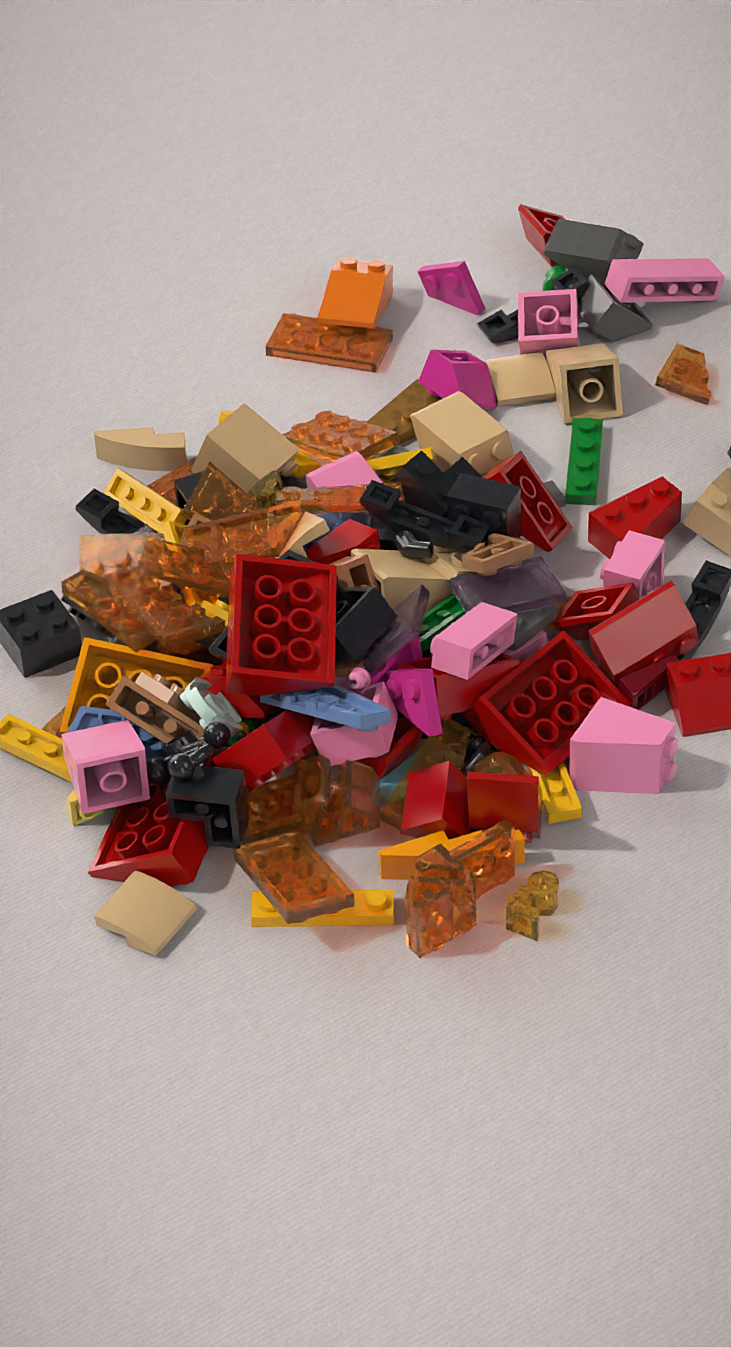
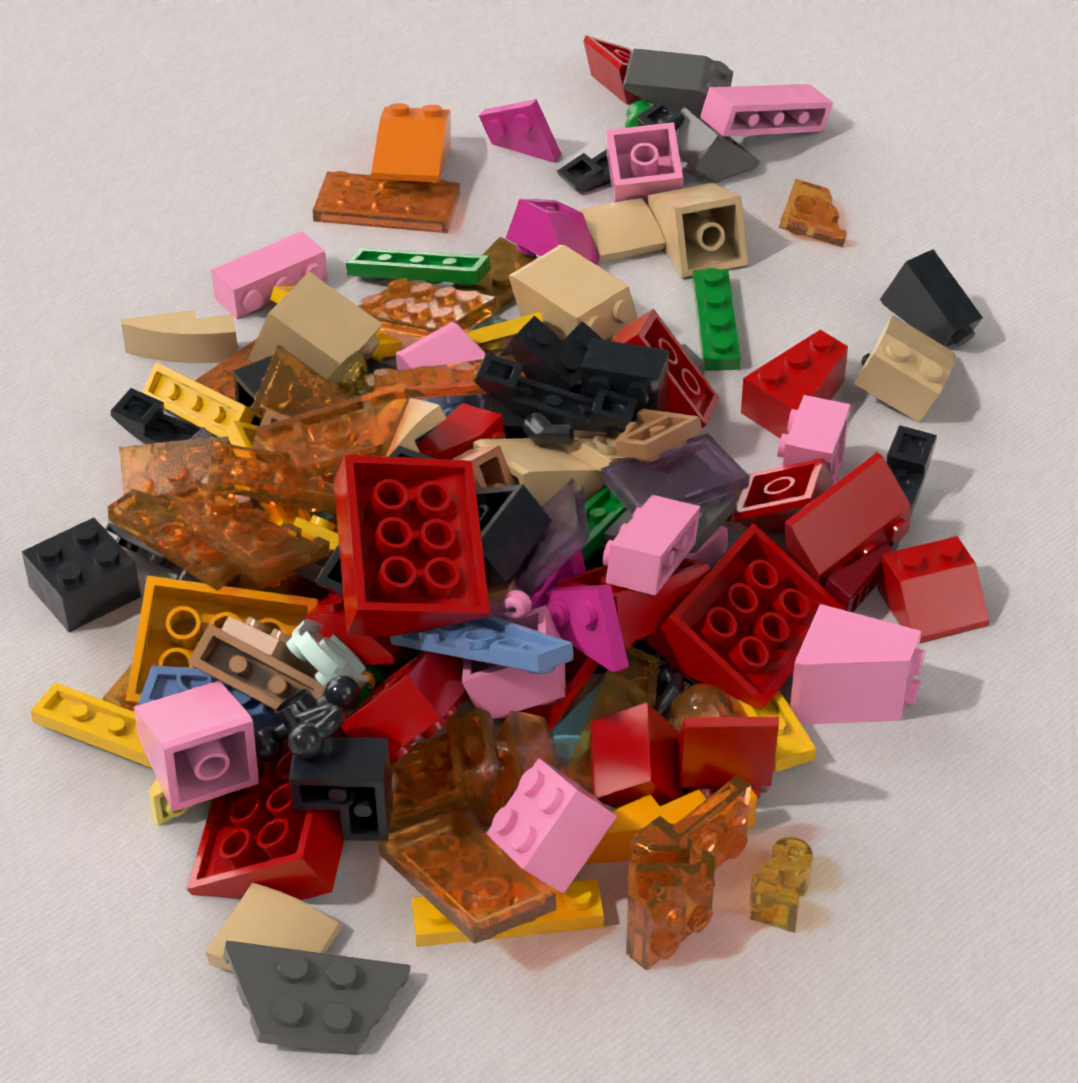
camera: 10 degrees left, 0 degrees up
(168, 952) = (312, 996): none -> dark grey wing
(201, 405) = (249, 280): none -> bright pink brick
(343, 400) = (418, 265): none -> green plate
(360, 845) = (550, 825): none -> bright pink brick

